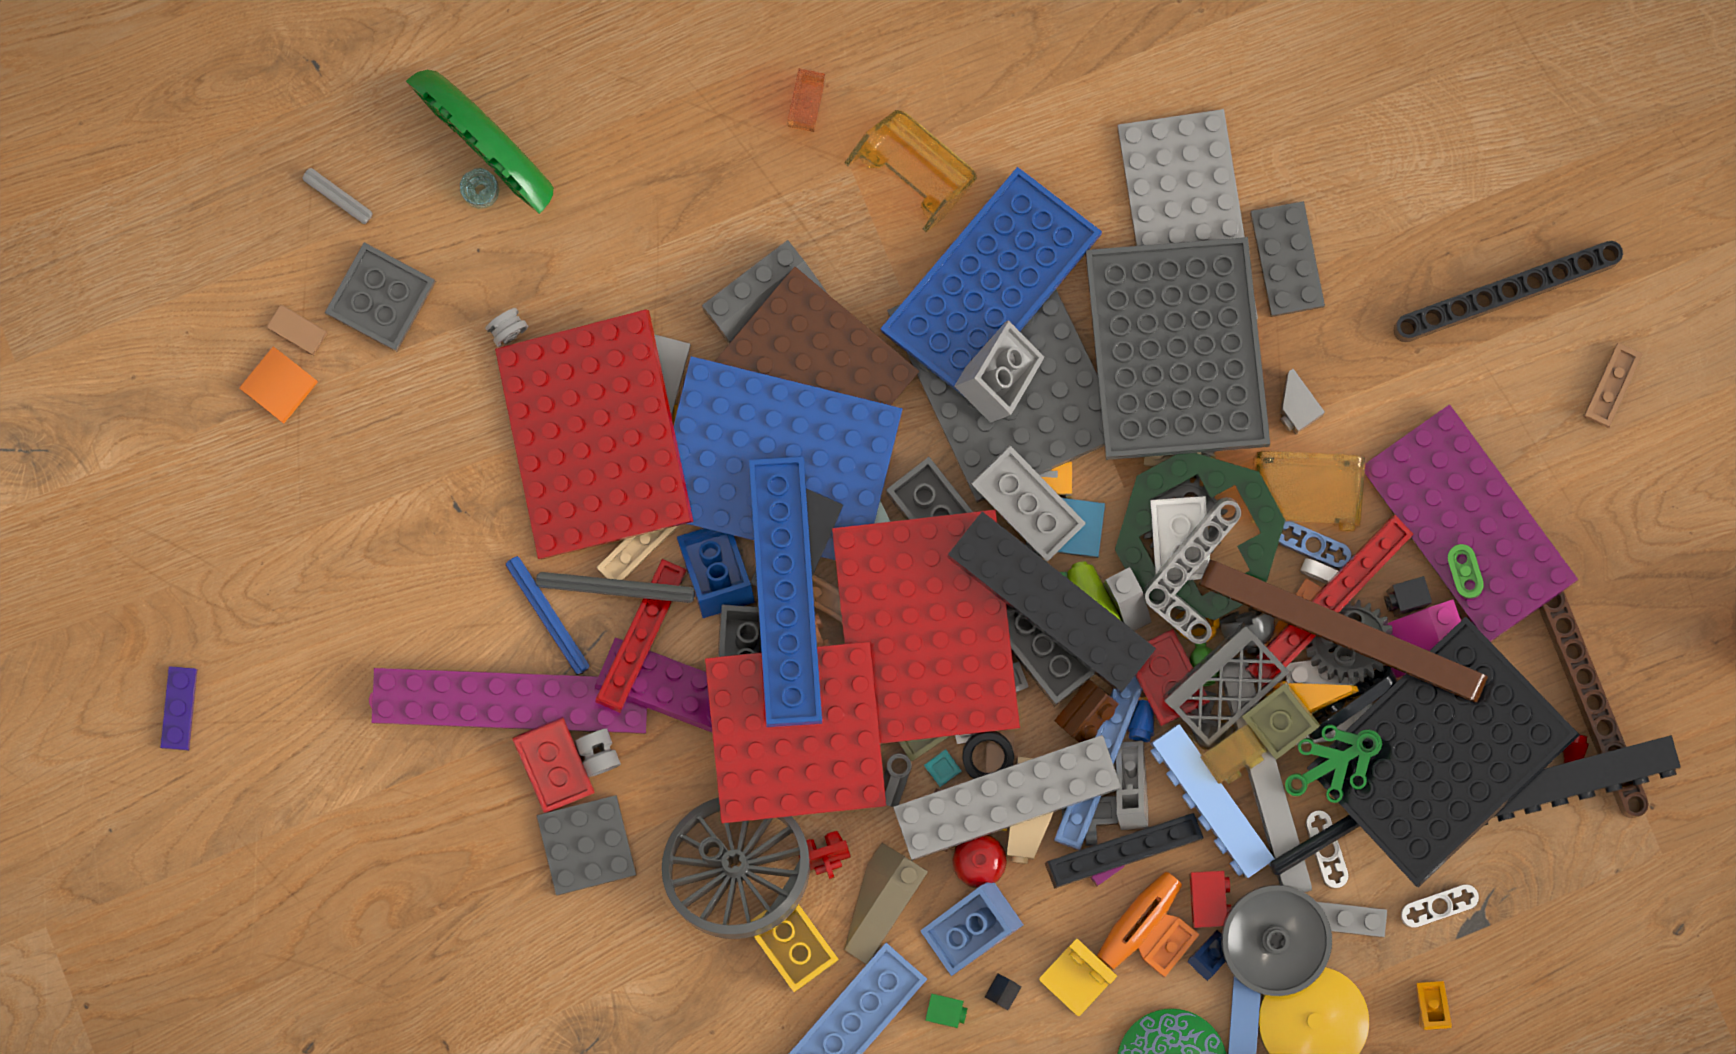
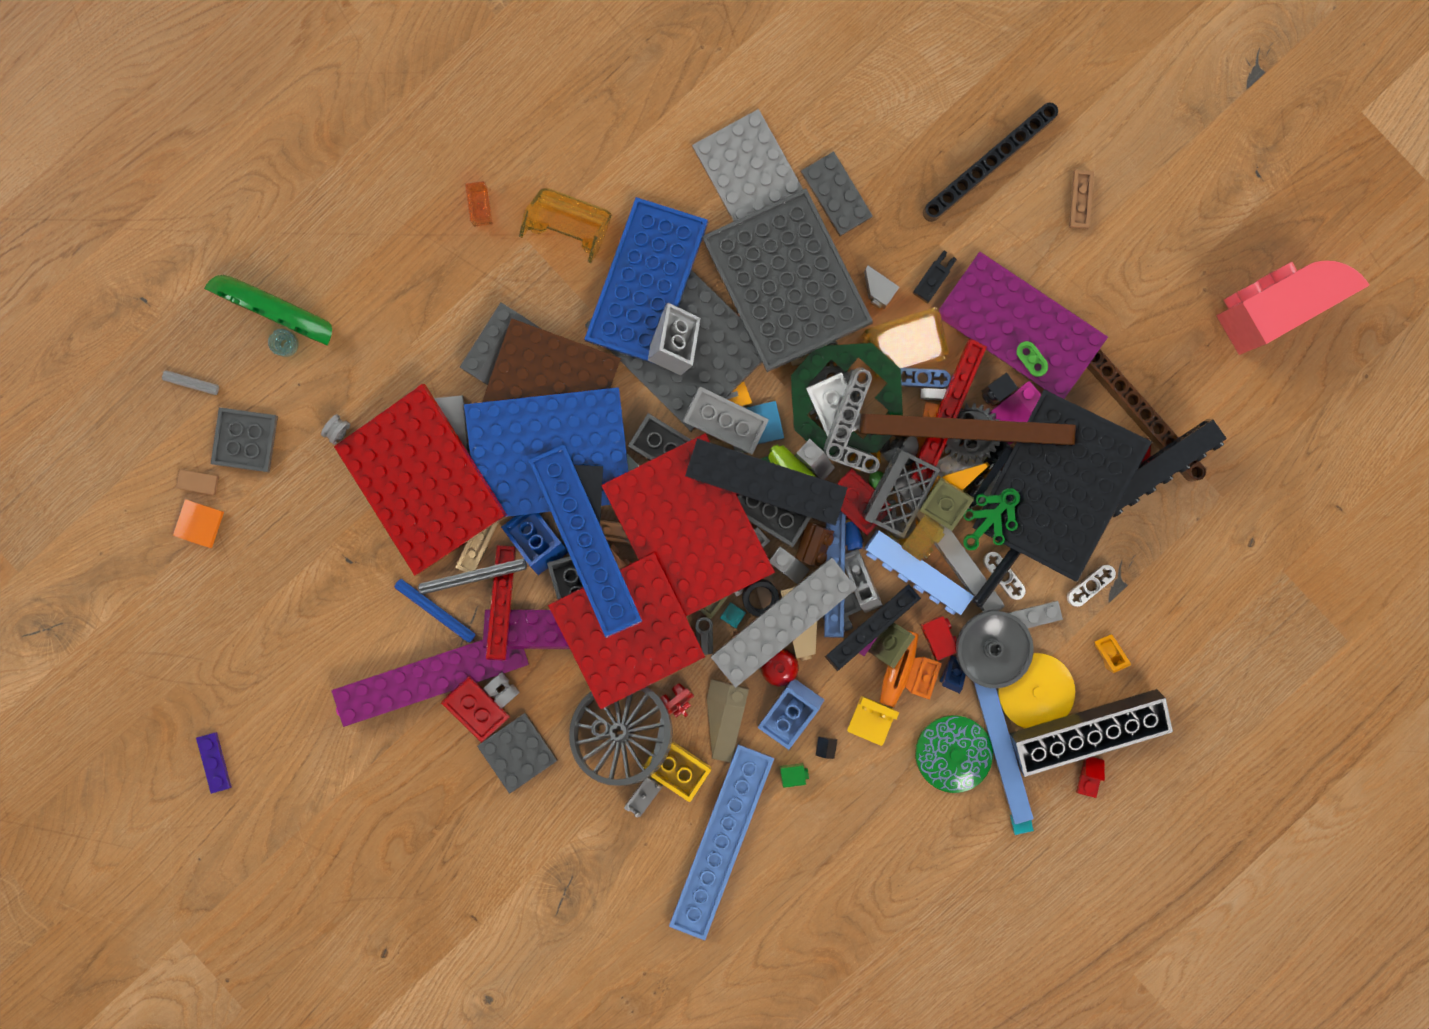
camera: 25 degrees left, 5 degrees up
(733, 965) = (643, 796): none -> light grey hinge
(1041, 727) = (788, 565): none -> light grey slope
(1140, 883) = (891, 644): none -> olive plate
(1376, 418) = (933, 278): none -> black hinge

